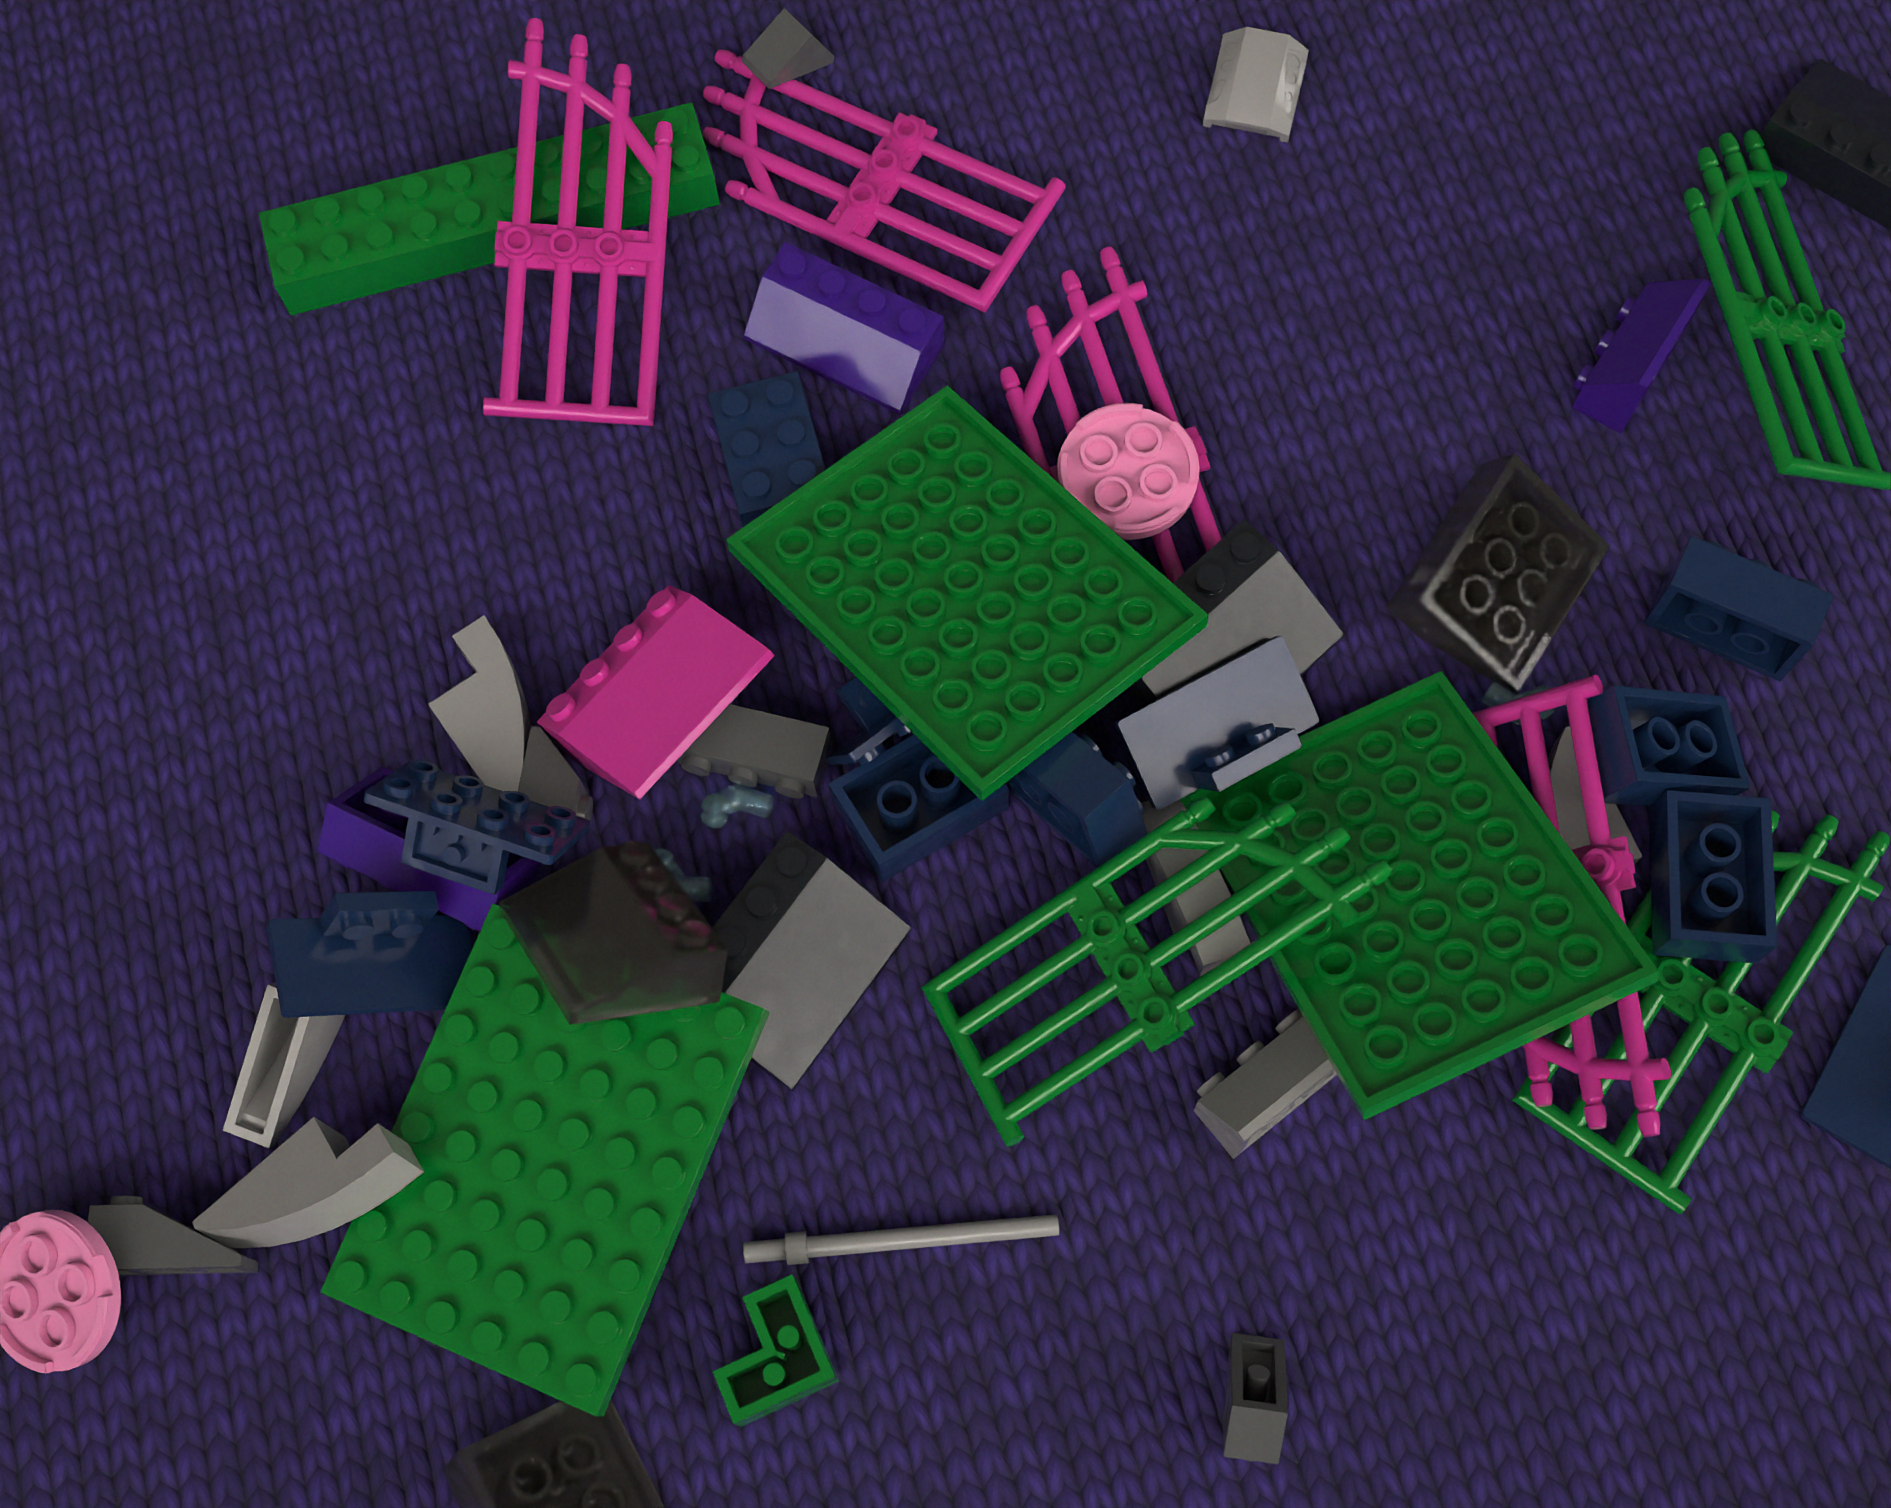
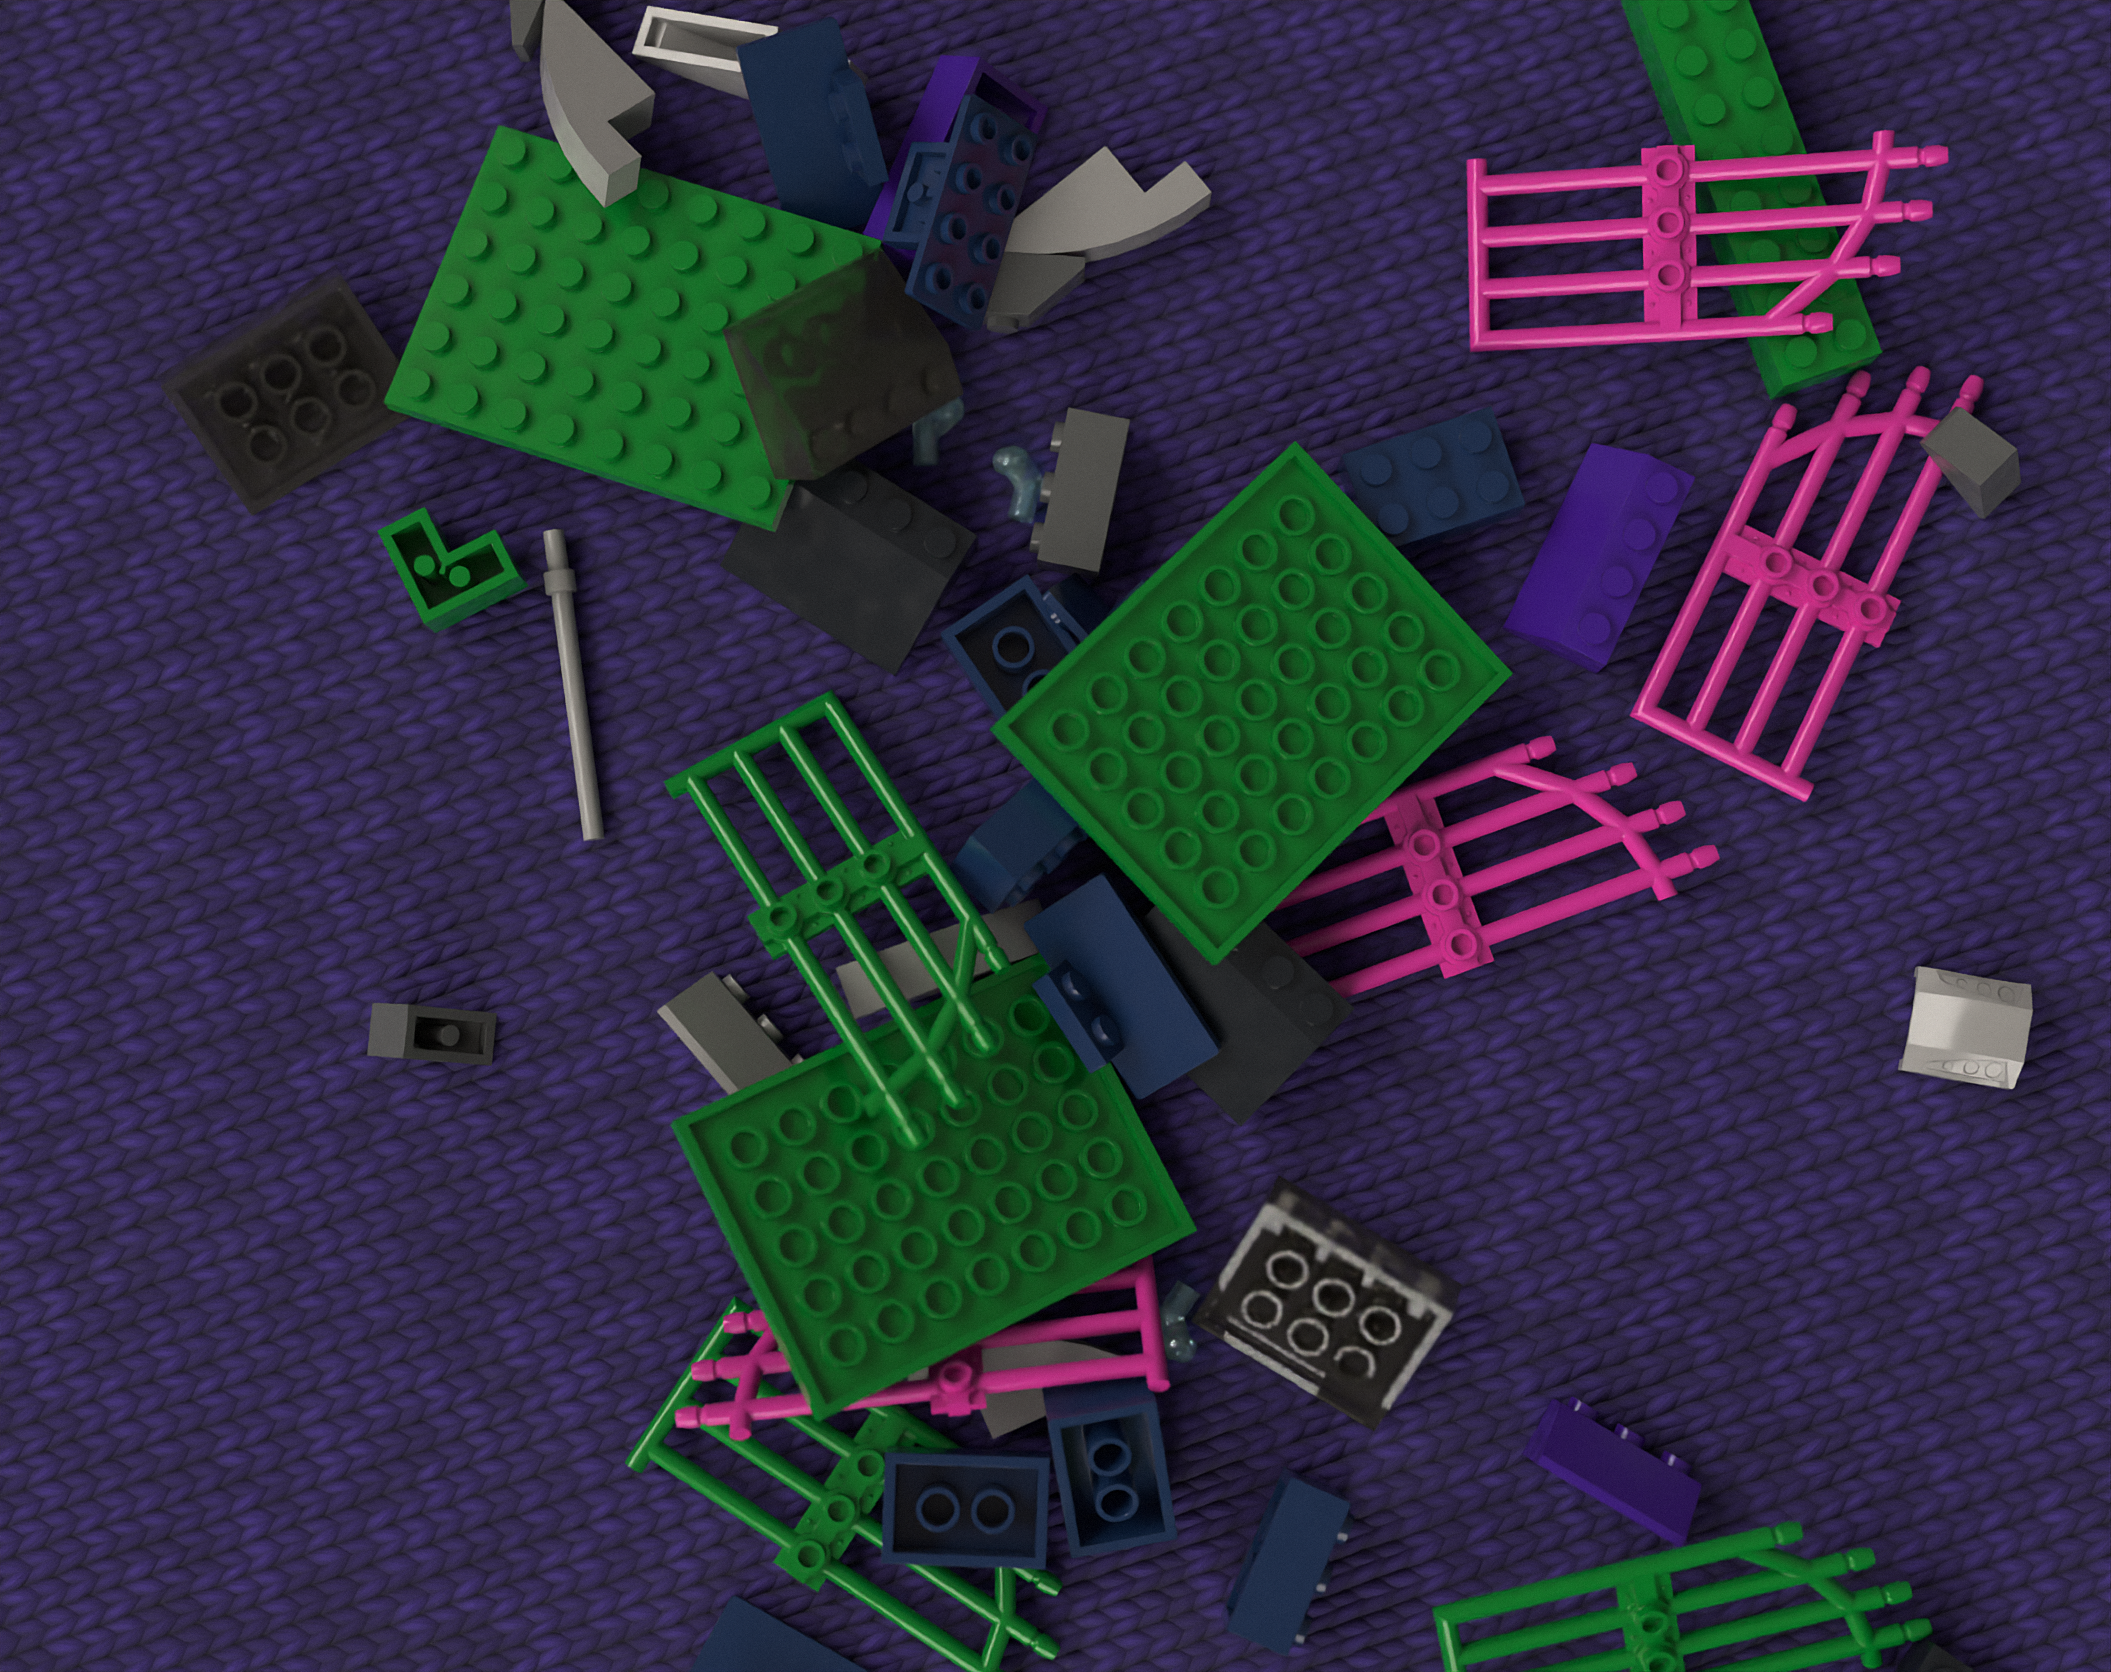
camera: 85 degrees right, 15 degrees up
(653, 691) = (1126, 382): dark pink slope -> none
(1130, 469) = (1423, 882): bright pink tile -> none

